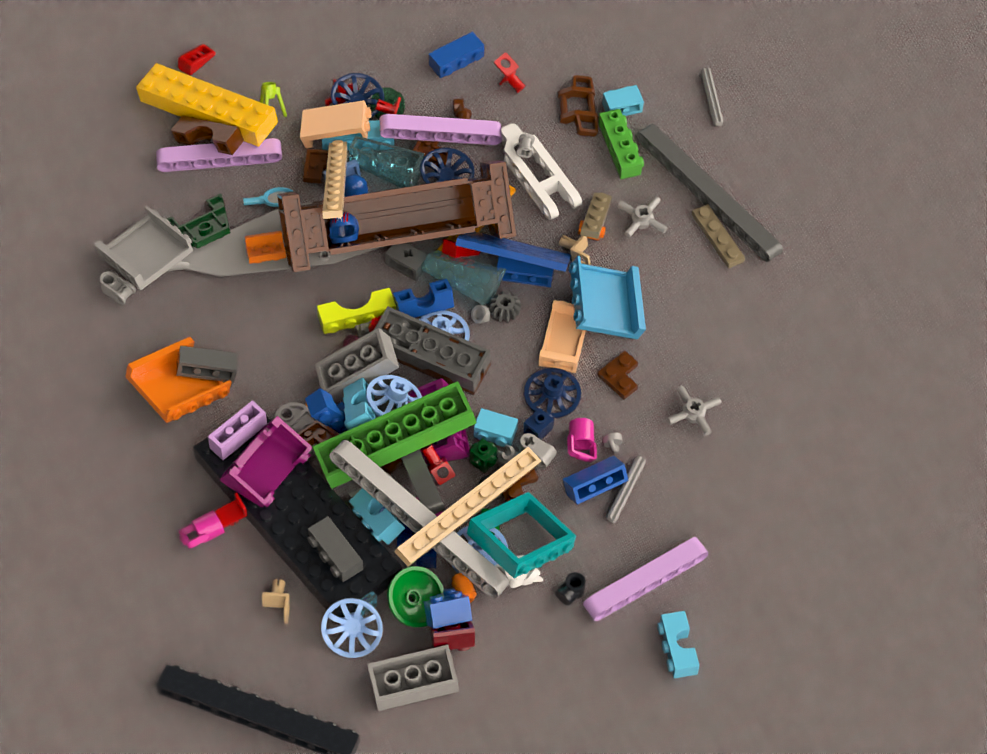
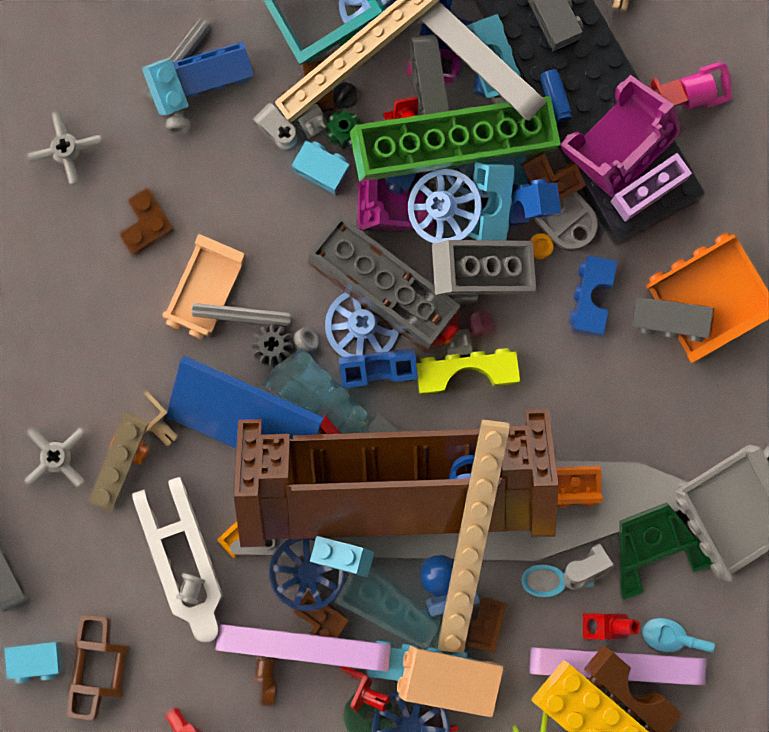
camera: 170 degrees left, 25 degrees up
(183, 180) = (670, 637): none -> medium azure piece
(227, 174) = (610, 626): none -> red bracket
(249, 201) = (588, 570): none -> light grey leg
(270, 388) = (587, 317): none -> blue arch
(321, 488) = (554, 87): none -> blue piece
(423, 170) = (342, 556): none -> medium azure brick
(532, 322) = (240, 314): none -> light grey axle
(539, 424) = (265, 162): dark blue brick -> none
(553, 389) = (237, 212): dark blue wheel -> none
(581, 438) = (217, 134): dark pink piece -> none
(607, 300) = (135, 325): dark azure panel -> none
(620, 143) = (55, 587): bright green brick -> none
(630, 455) = (165, 87): none -> medium azure brick

